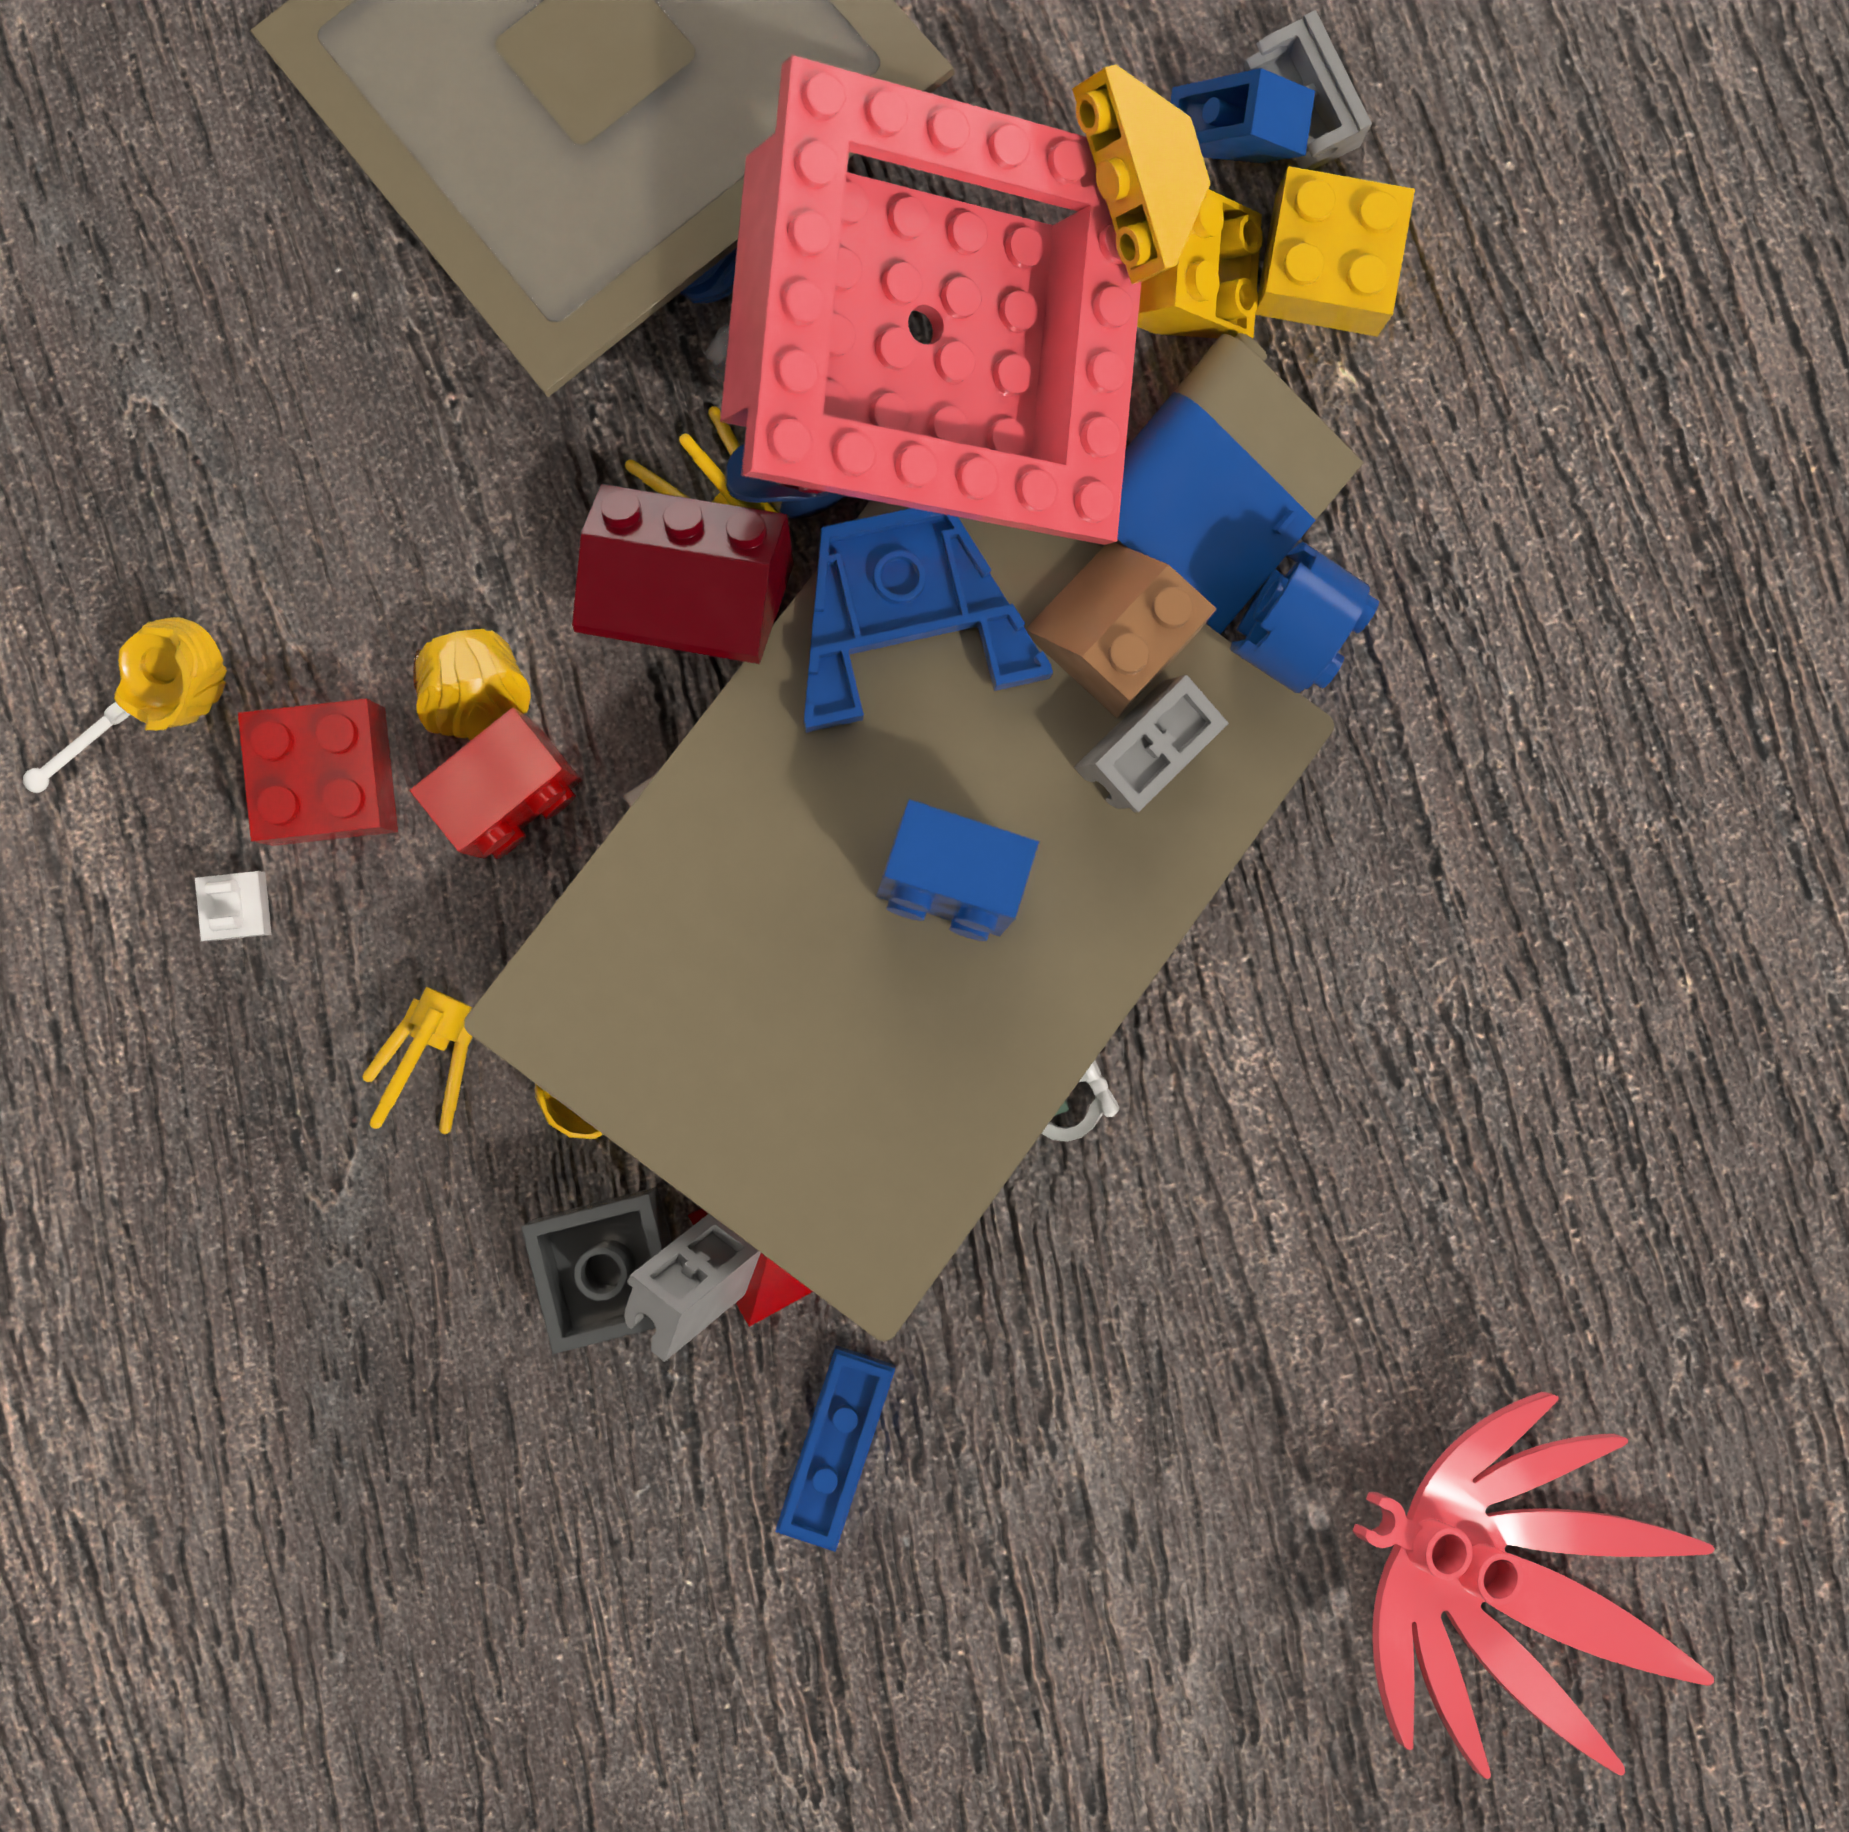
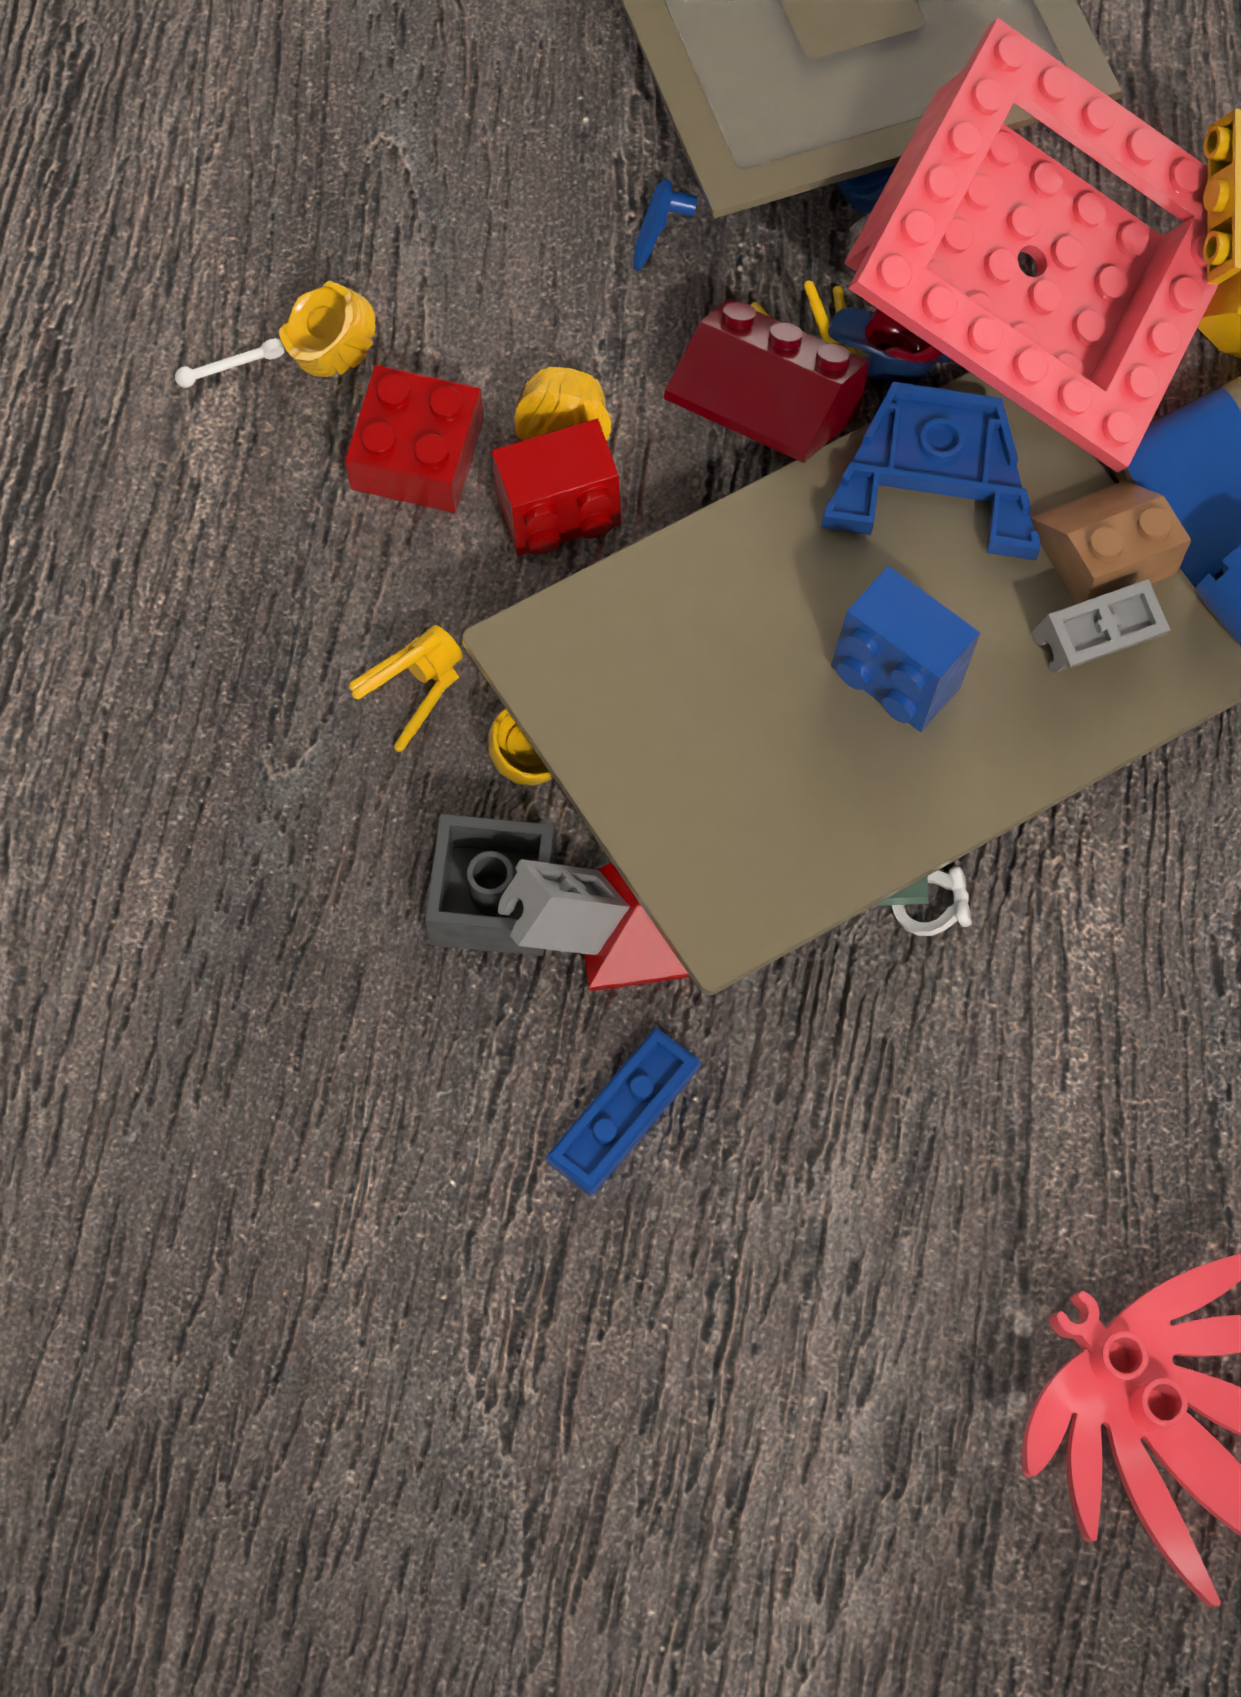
camera: 25 degrees right, 20 degrees down
(233, 906) = (300, 519): white tile -> none
(480, 374) = (654, 222): none -> blue bar

